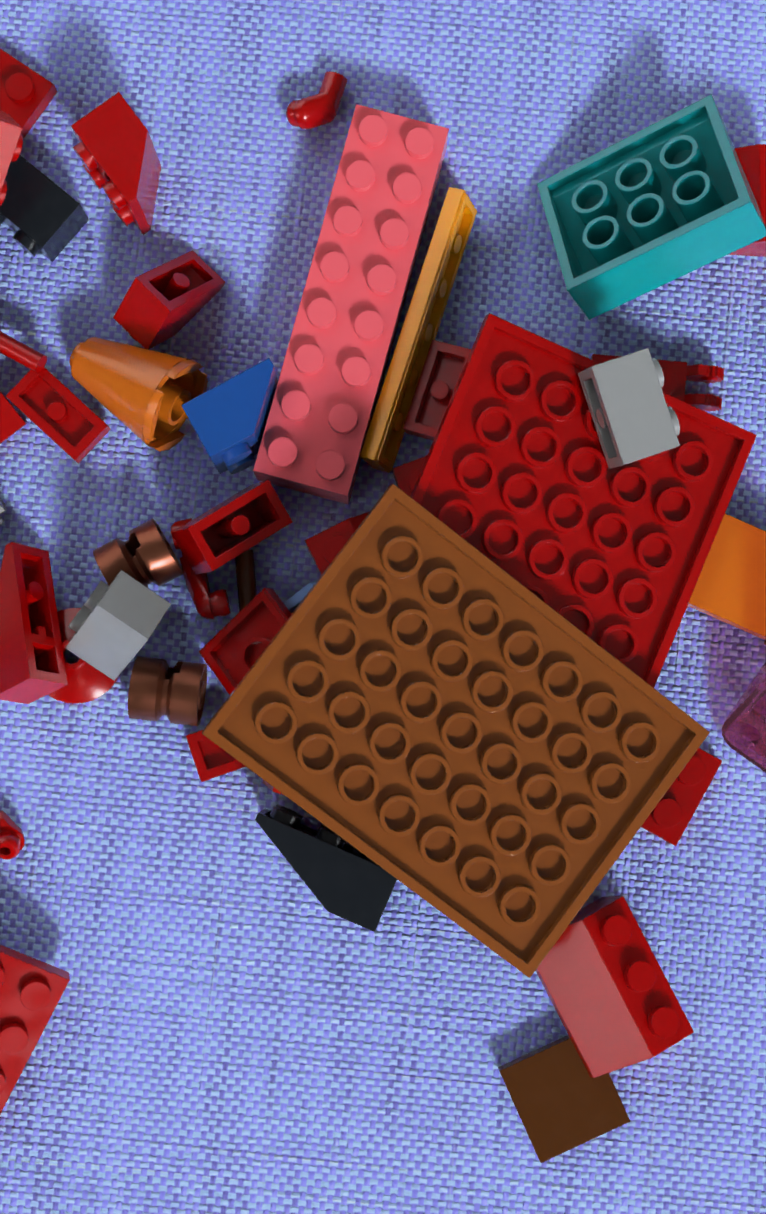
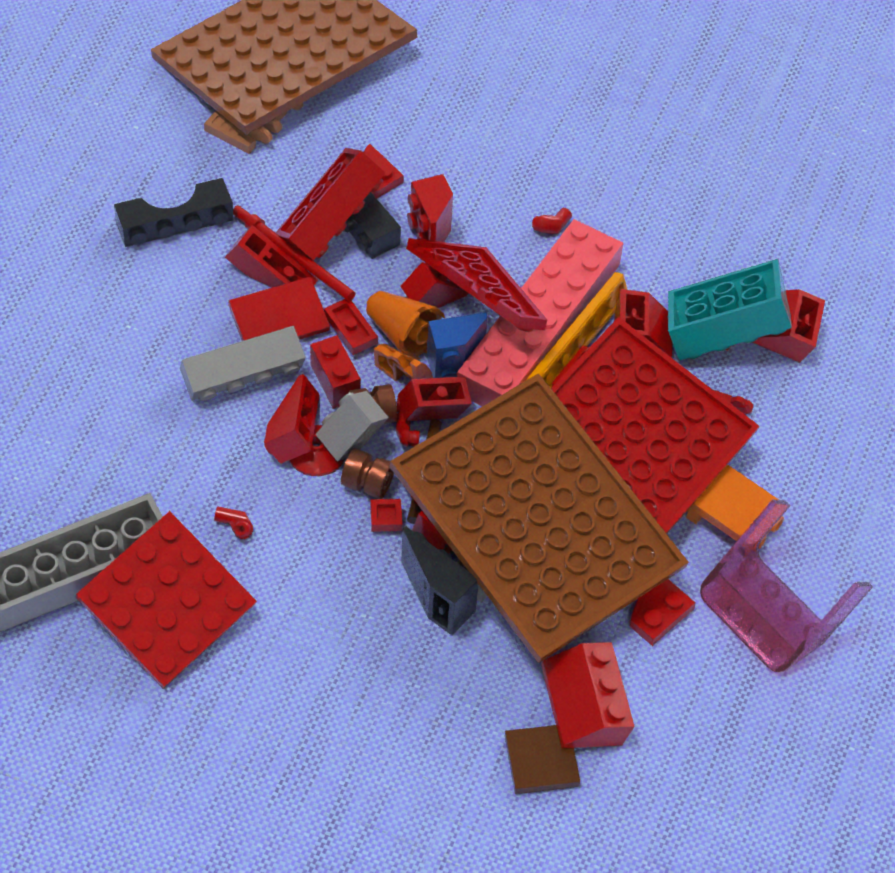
camera: 15 degrees right, 30 degrees down
(58, 513) = (333, 369): none -> red brick
(162, 468) = (397, 364): none -> orange slope
(237, 275) = (482, 277): none -> red wing
(517, 275) = (645, 316): none -> red slope
(630, 408) = (685, 381): light grey brick -> none

